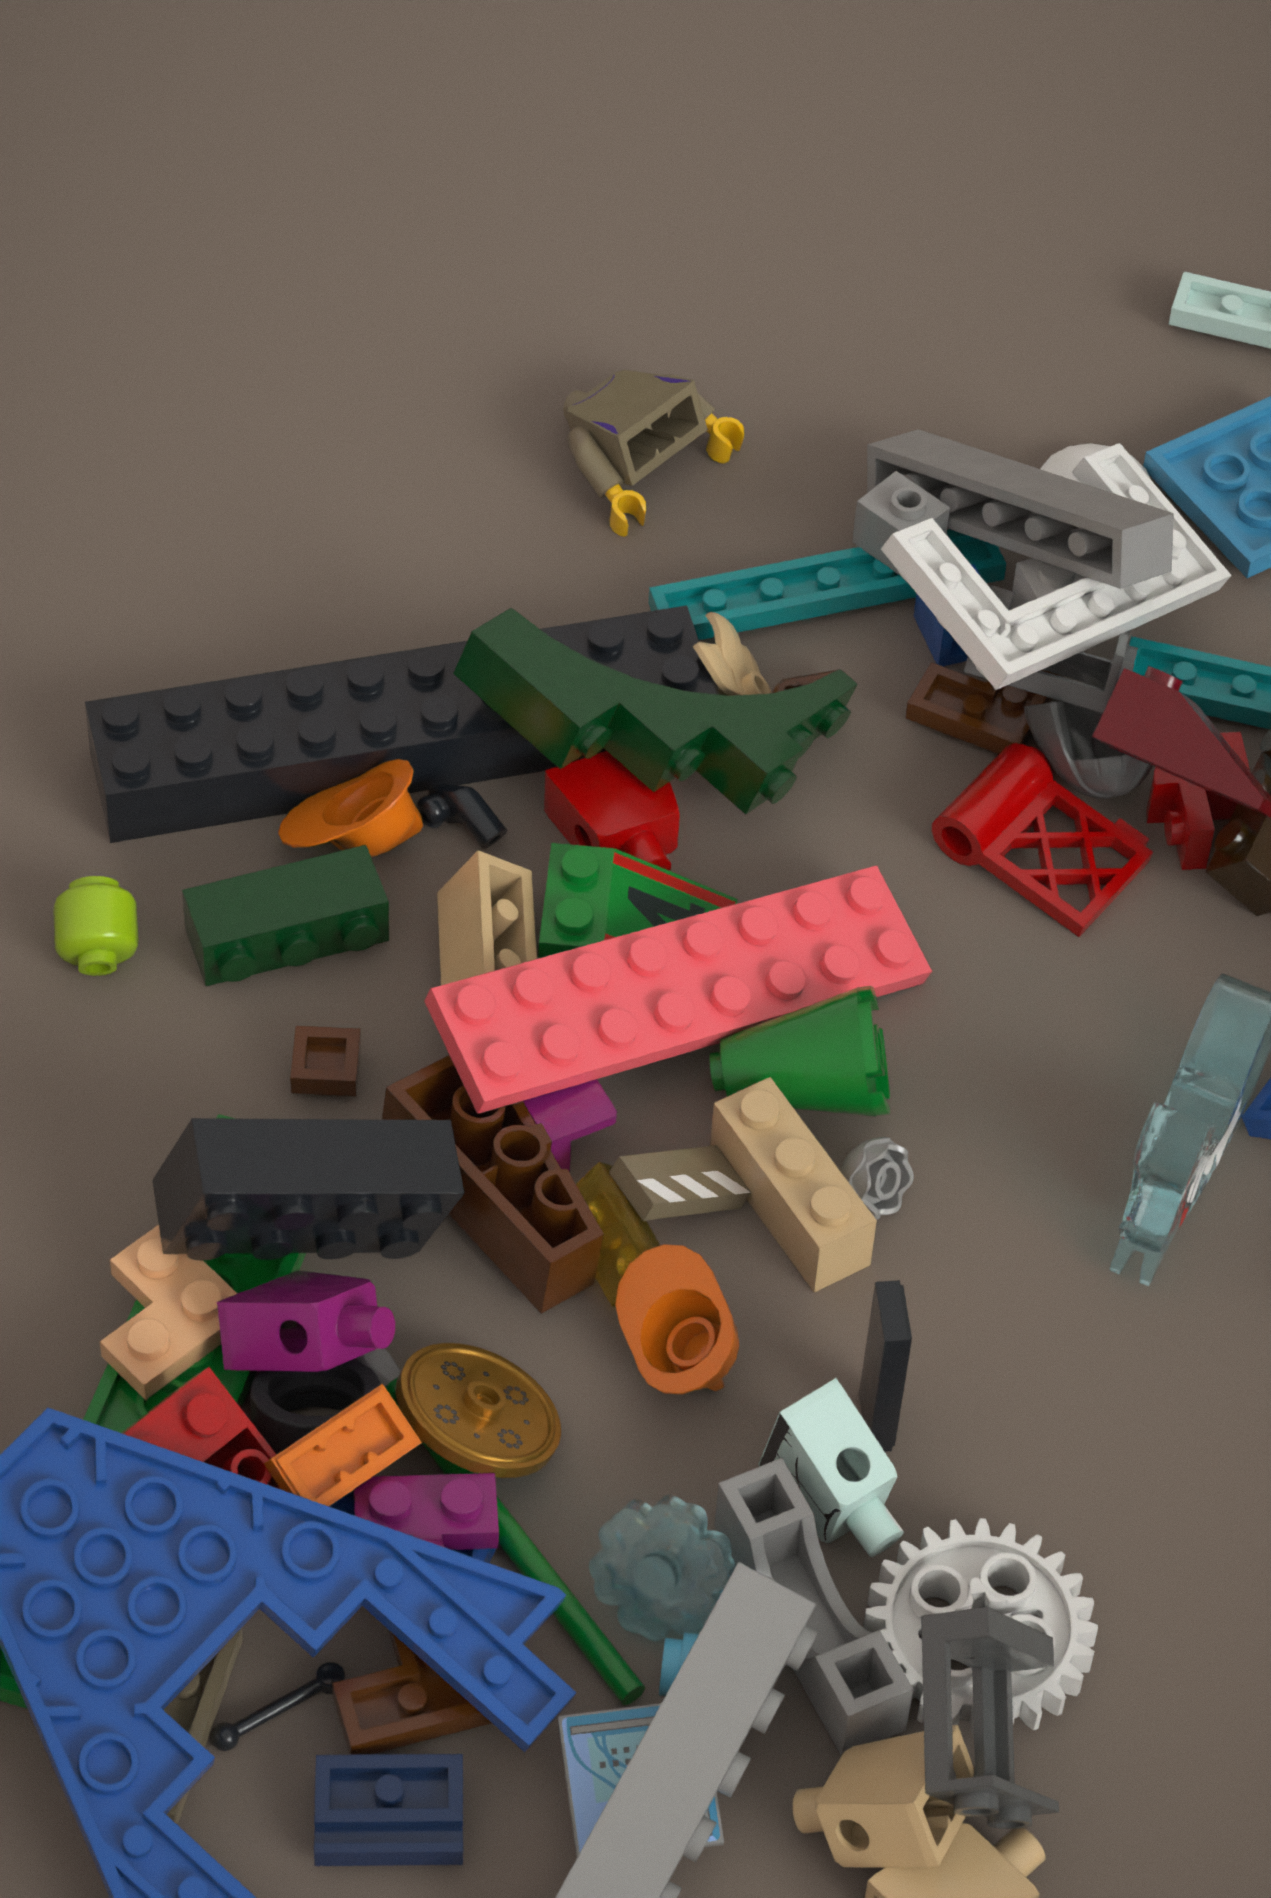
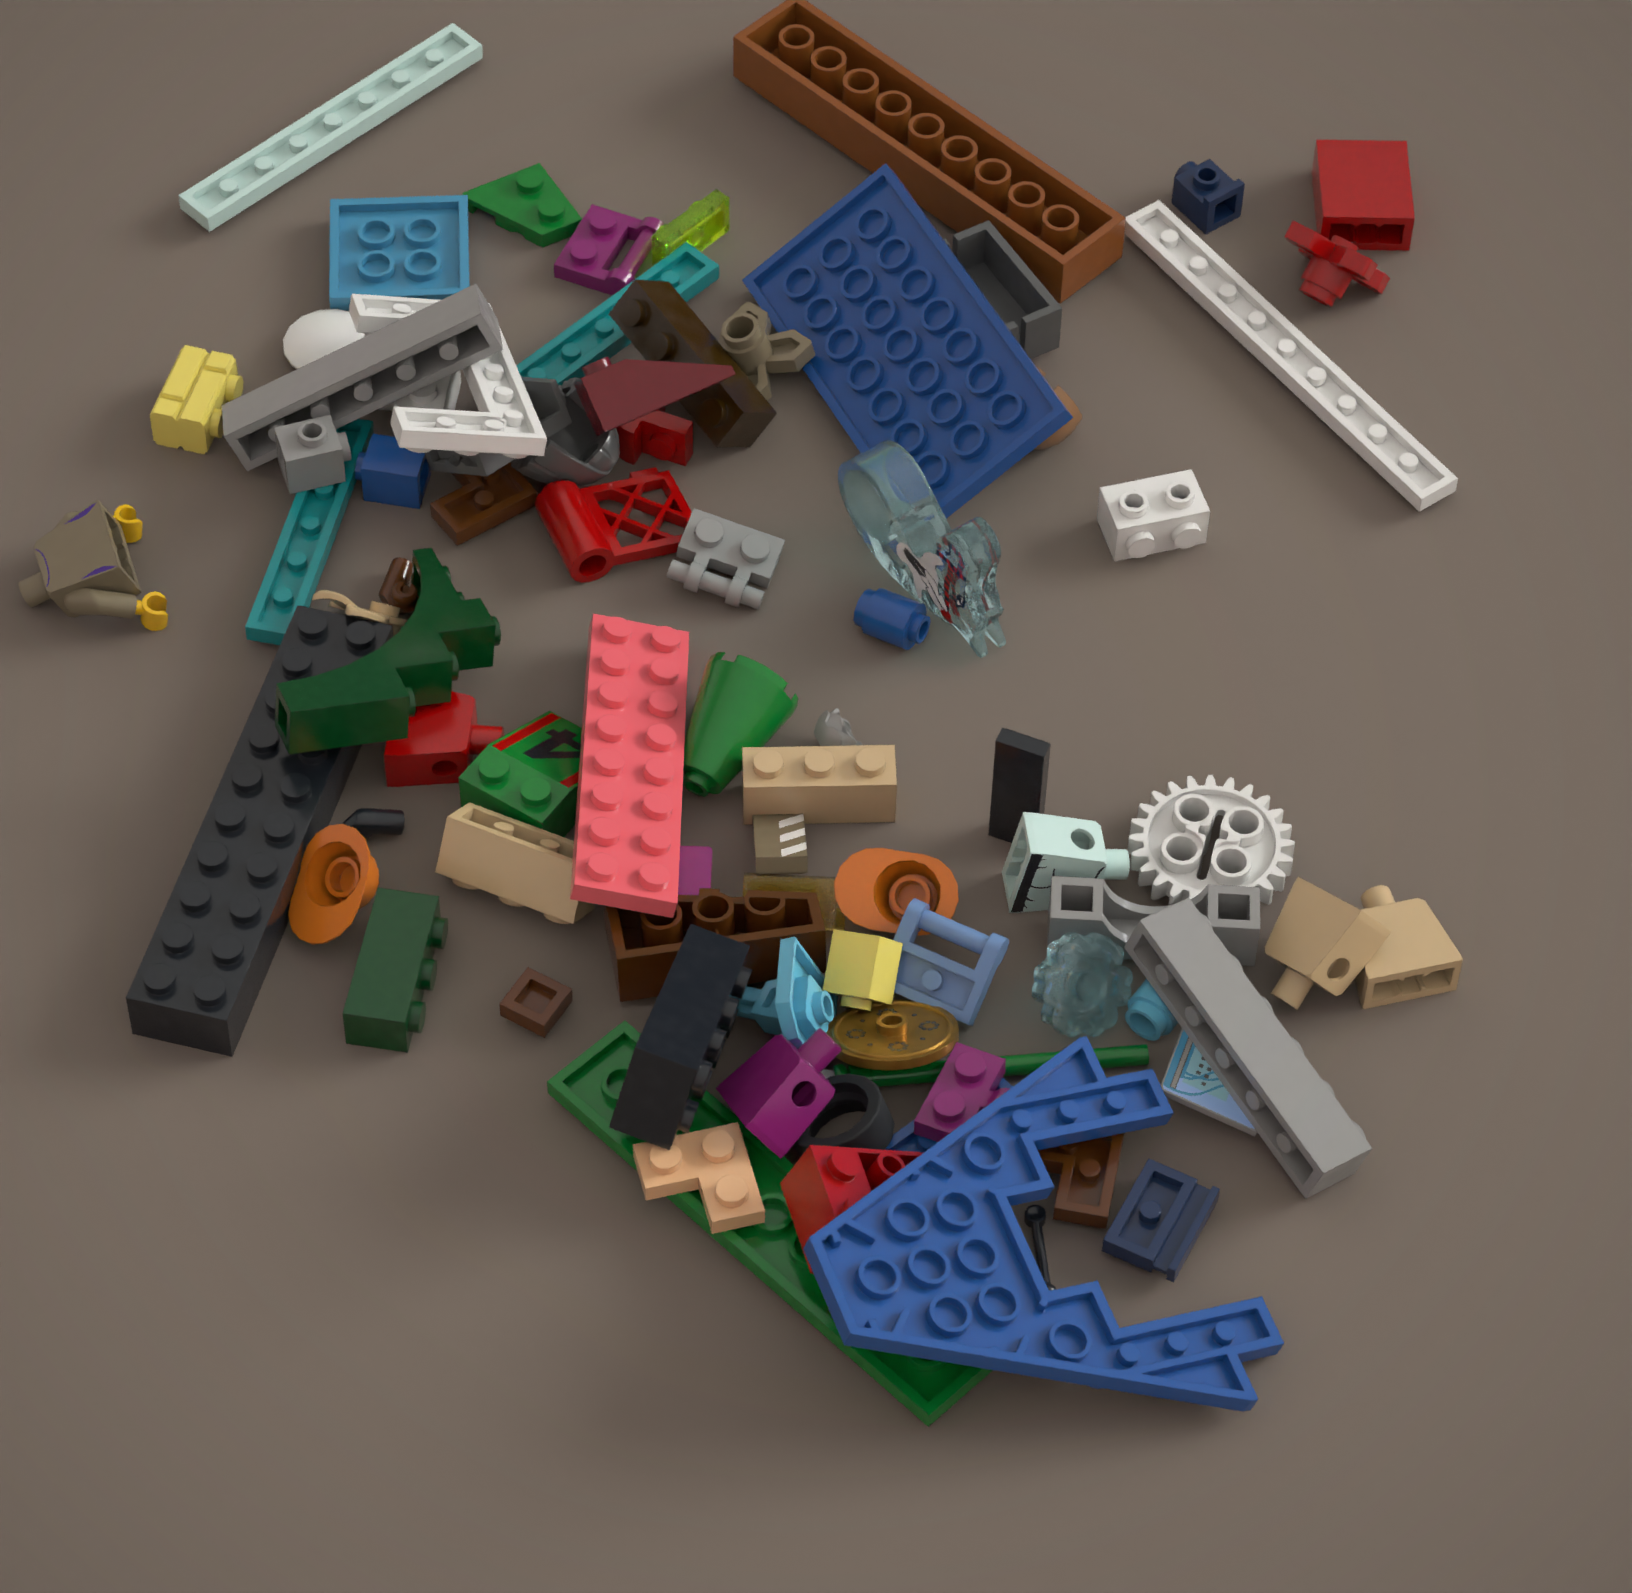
camera: 60 degrees left, 0 degrees up
(95, 925) = (322, 1087): lime head -> none
(345, 1449) = (904, 1107): orange plate -> none
(453, 1292) = (793, 1001): none -> medium azure piece
(546, 1335) = (862, 969): none -> light yellow brick
(592, 1414) = (938, 979): none -> medium blue plate
(932, 400) = (191, 399): none -> light yellow brick
(994, 1649) = (1261, 840): dark grey panel -> none
(1078, 954) = (730, 550): none -> light grey plate
(1093, 1151) = (892, 618): none -> blue brick

